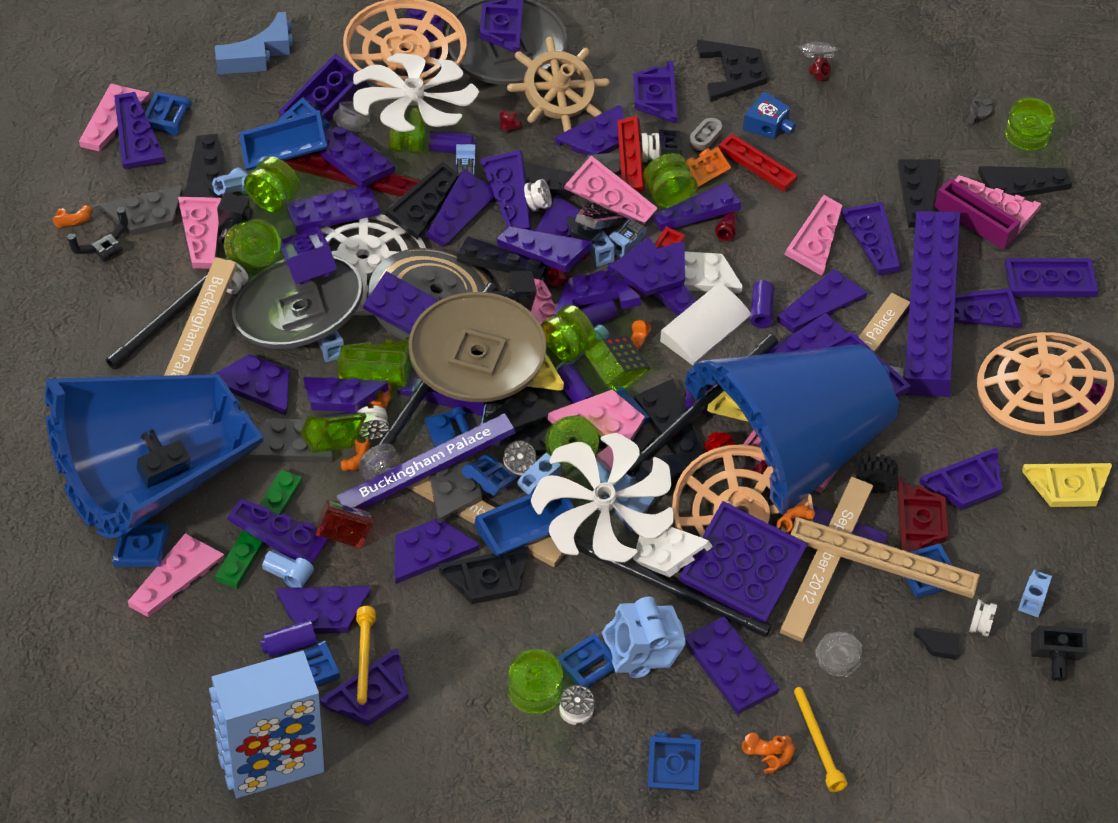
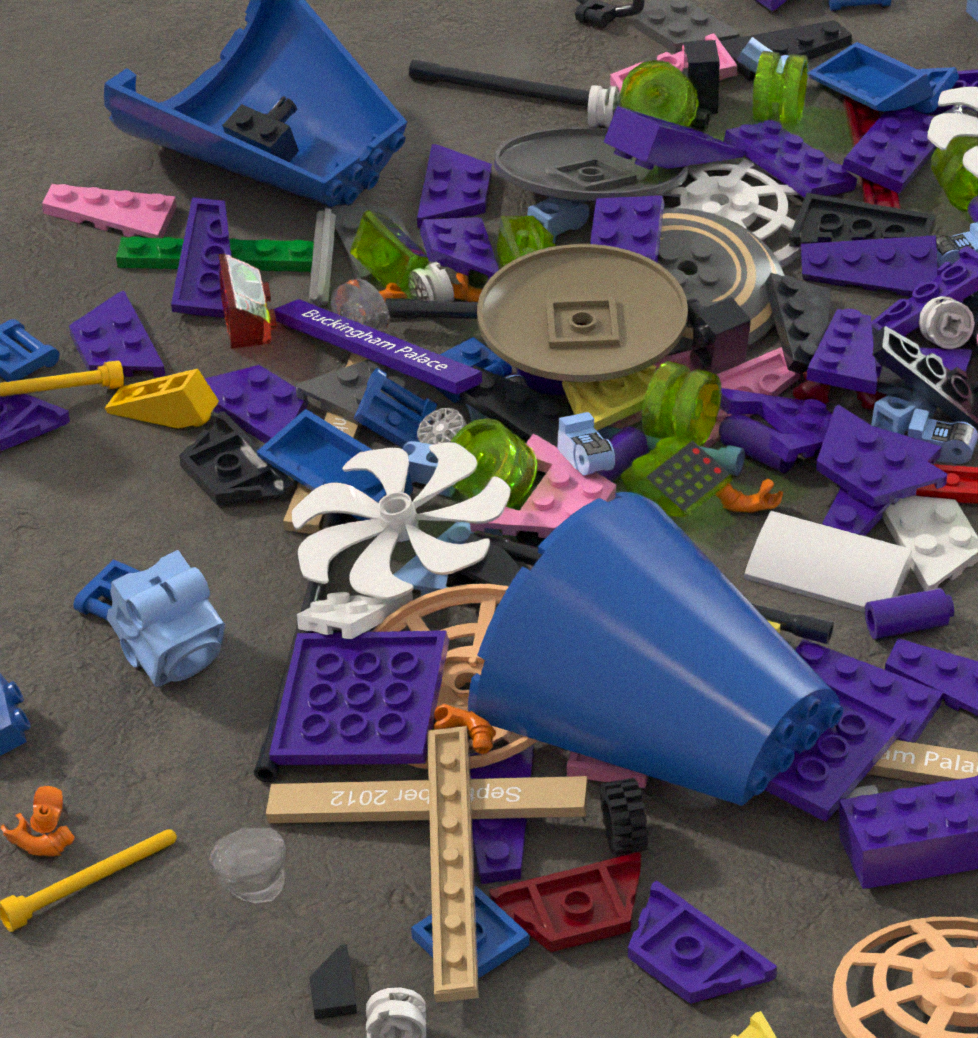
camera: 75 degrees right, 10 degrees down
(142, 546) = (140, 168): blue plate -> none
(201, 317) = (503, 99): tan tile -> none
(288, 639) = (45, 319): dark purple brick -> none
(292, 571) = (156, 294): light blue piece -> none
(301, 470) = (322, 257): none -> light grey axle
(409, 595) = (168, 401): none -> yellow slope
(535, 681) = (62, 546): clear neon green wheel -> none
(576, 705) = (46, 605): white wheel -> none
(585, 389) = (584, 445): none -> light blue leg
(731, 665) = (186, 750): dark purple plate -> none

